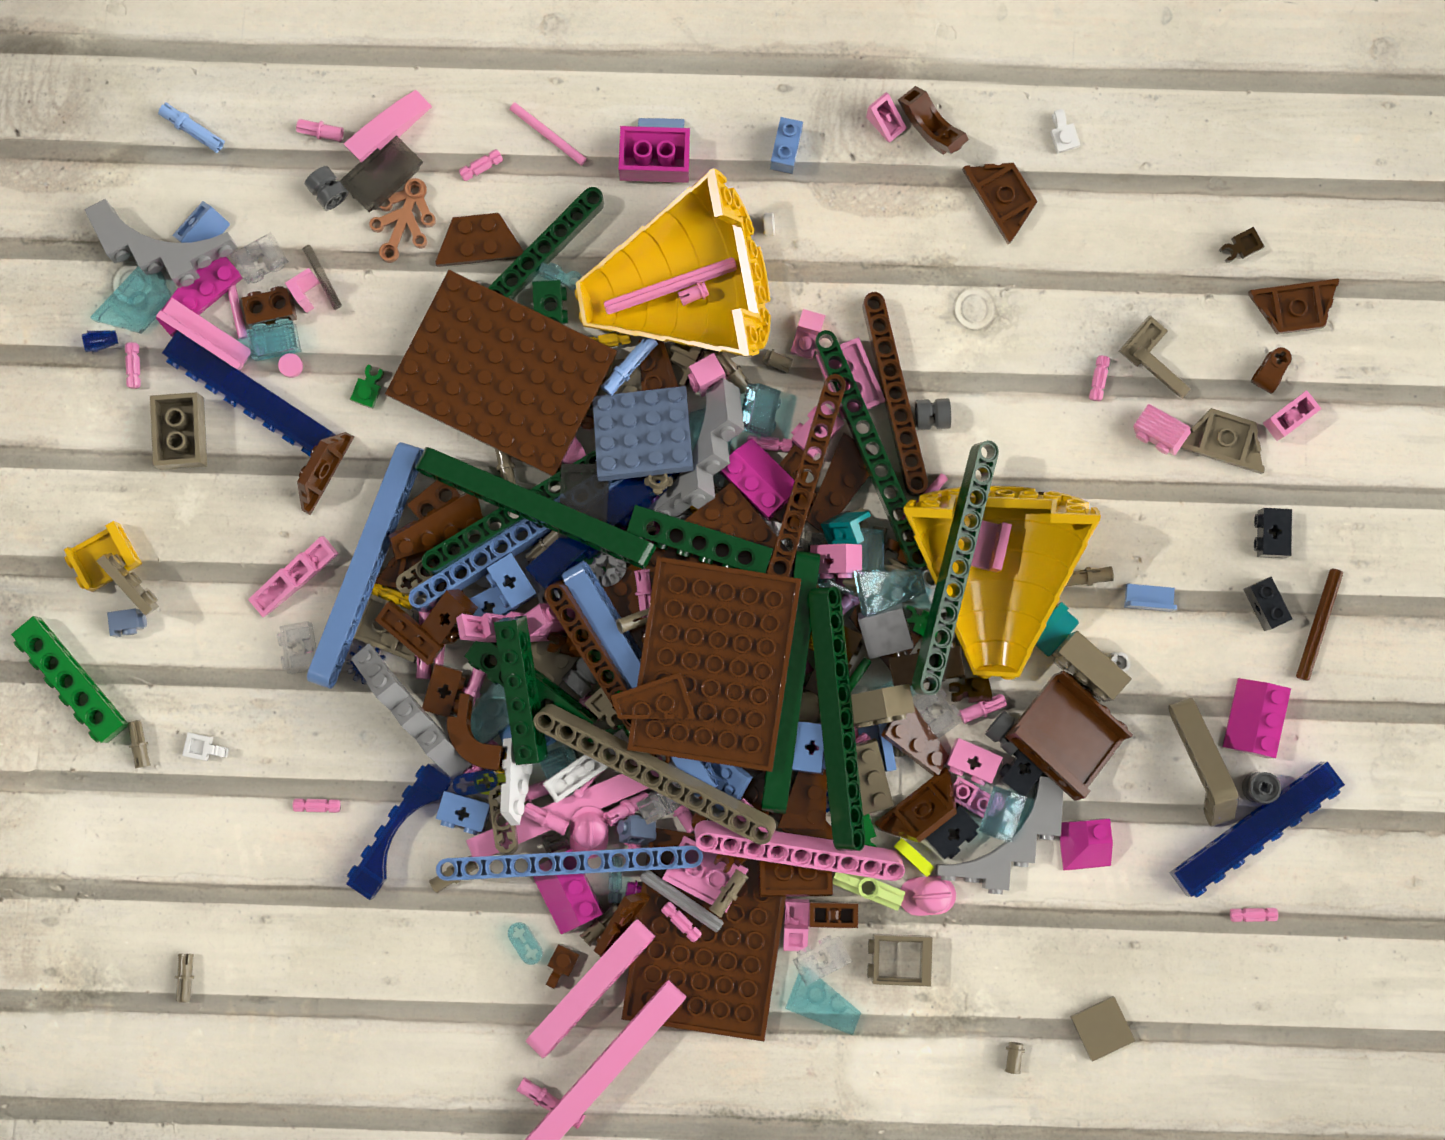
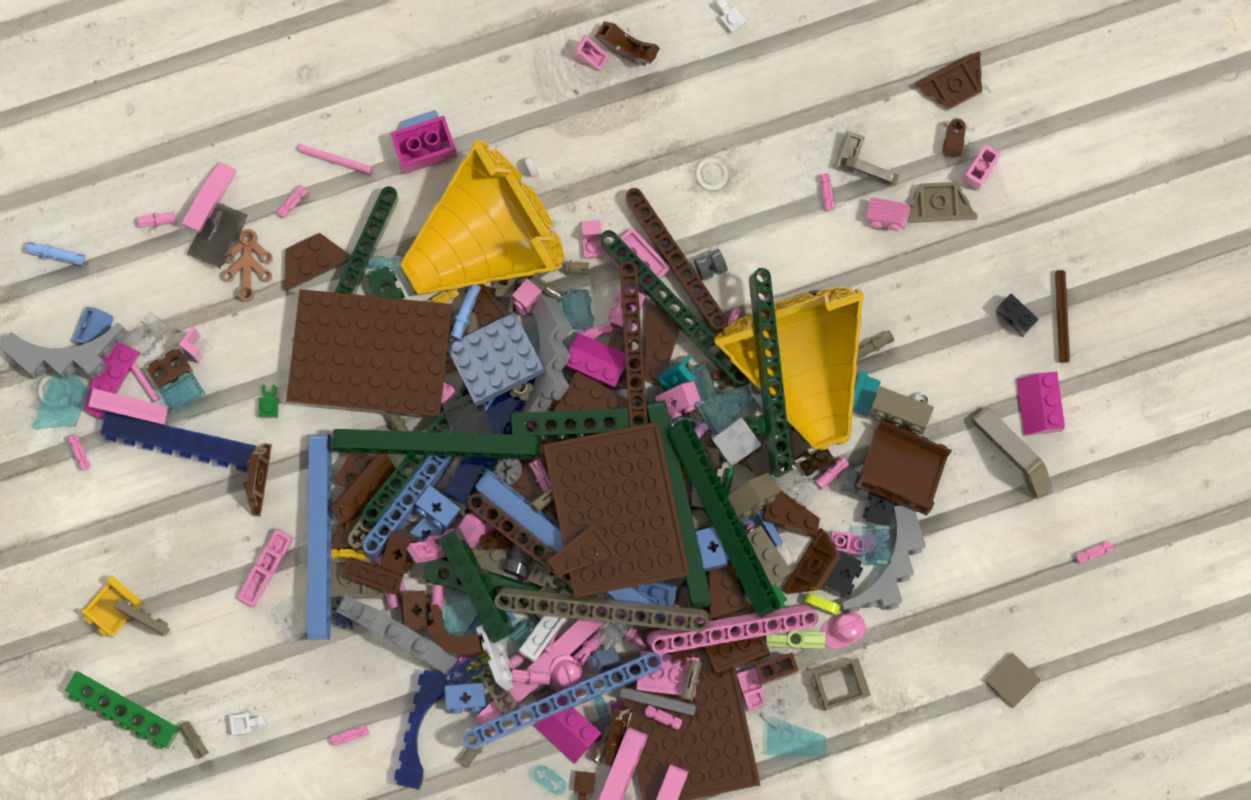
camera: 20 degrees left, 5 degrees down
(99, 339) = (45, 442): clear blue cone -> none
(126, 621) = (149, 649): sand blue brick -> none
(178, 431) = (135, 488): dark tan brick -> none
(290, 365) = (202, 407): bright pink tile -> none
(322, 277) = (202, 332): clear smoke bar -> none
(326, 188) = (180, 262): dark grey wheel -> none
(670, 285) = (473, 240): bright pink axle -> none
(693, 293) = (493, 239): bright pink pin -> none
(786, 145) = (522, 101): medium blue brick -> none
(987, 762) = (848, 510): bright pink brick -> none
(991, 546) = (791, 348): bright pink panel -> none
(1003, 195) = (702, 80): reddish brown wing -> none
(1014, 1057) = (954, 726): dark tan pin -> none
(1086, 844) = (948, 546): dark pink slope -> none
(1149, 597) = (927, 343): medium blue panel -> none
(1243, 244) = (898, 51): dark brown plate -> none
(1256, 829) = (1072, 486): clear blue brick -> none
(1261, 787) = (1063, 454): dark grey wheel -> none
(1279, 521) = (1002, 249): black brick -> none

